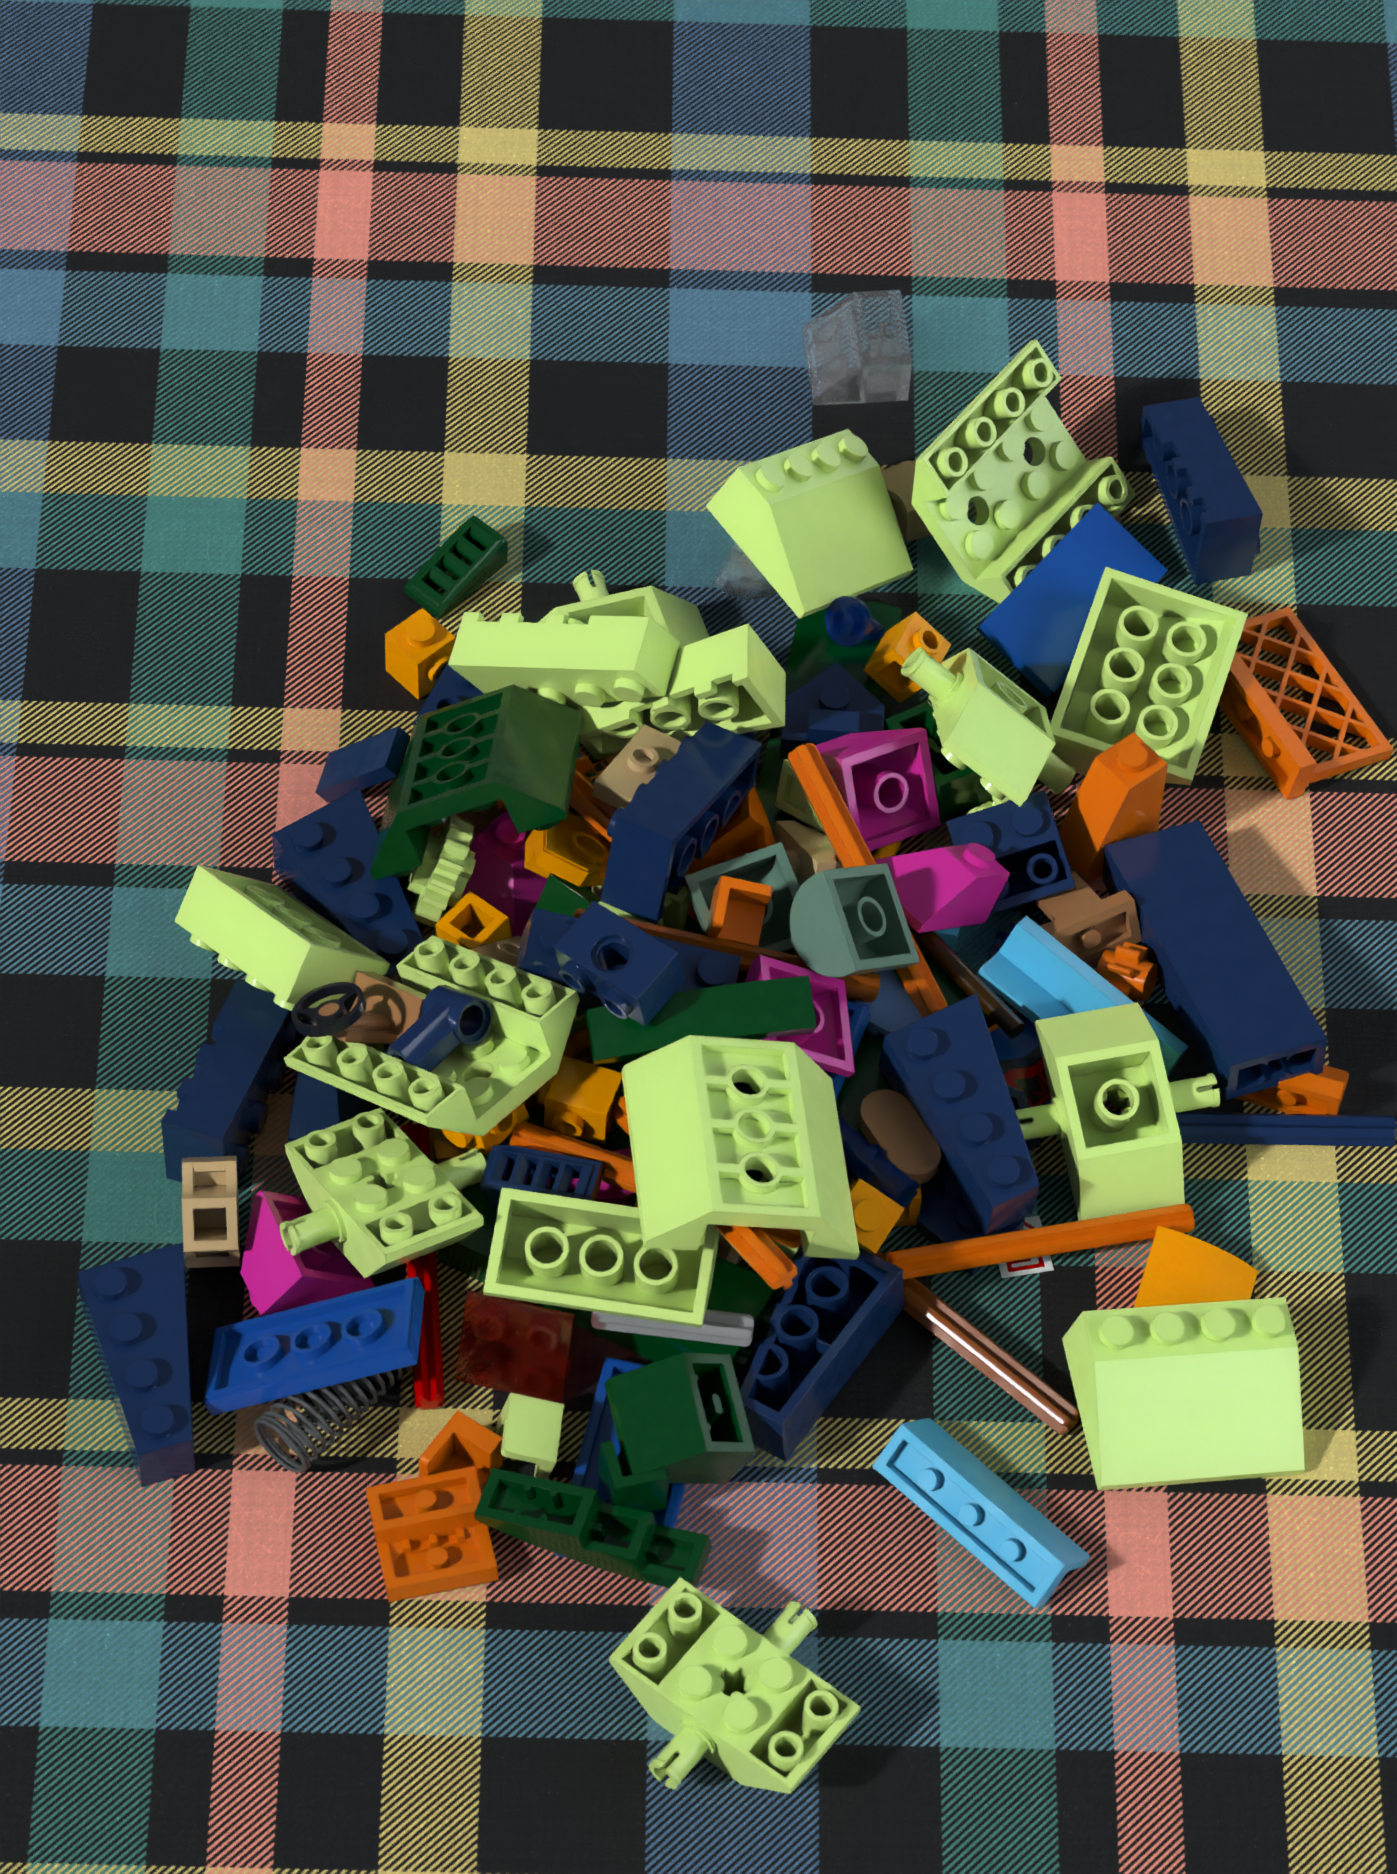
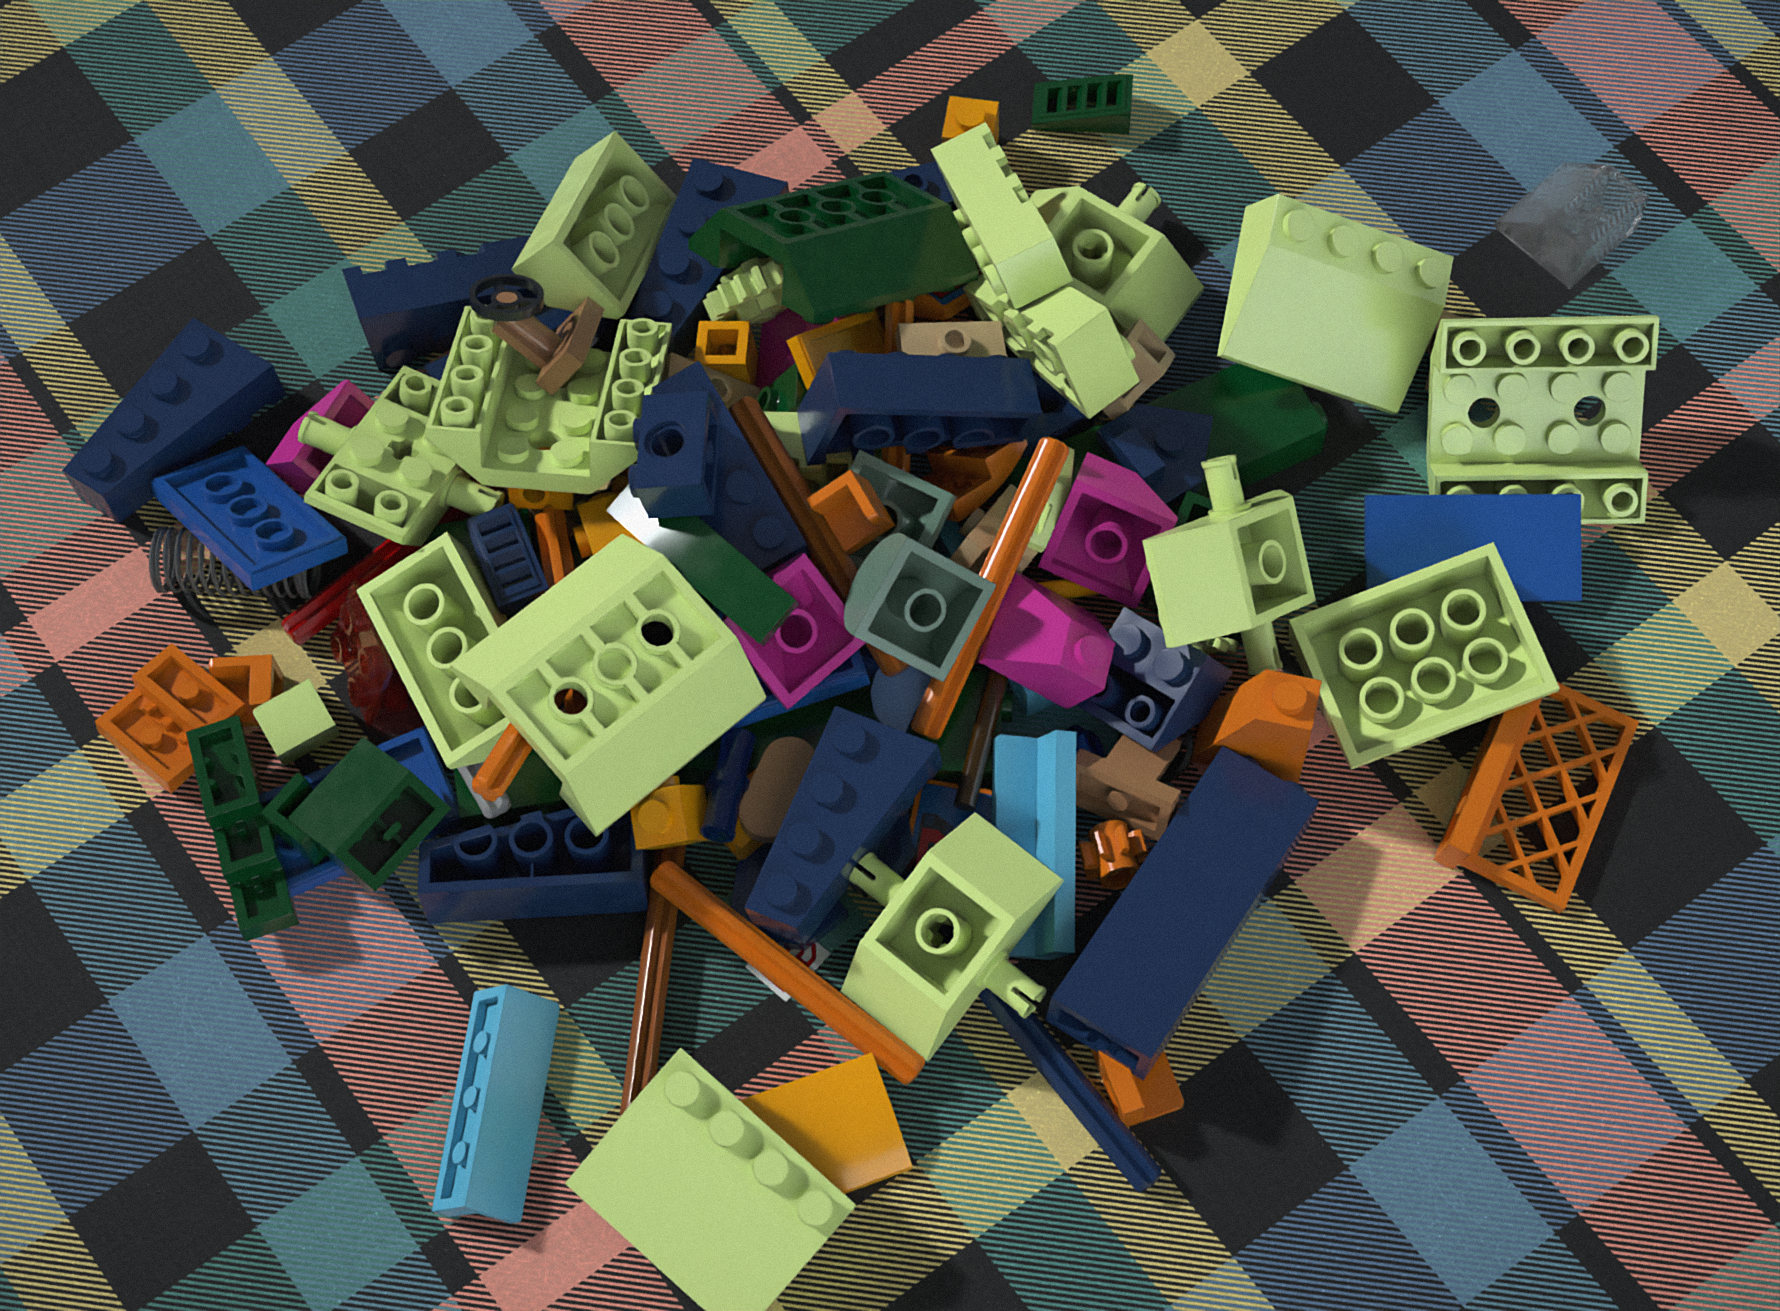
camera: 60 degrees right, 10 degrees up
(210, 1212) = (317, 359): tan brick -> none
(363, 764) = (822, 169): dark blue tile -> none
(445, 1023) = (551, 385): dark blue piece -> none
(731, 1692) = (162, 981): yellowish green slope -> none
(851, 622) = (1267, 399): clear blue plate -> none
(896, 647) = (1272, 462): light orange brick -> none
(1201, 490) = (1687, 563): dark blue wedge -> none

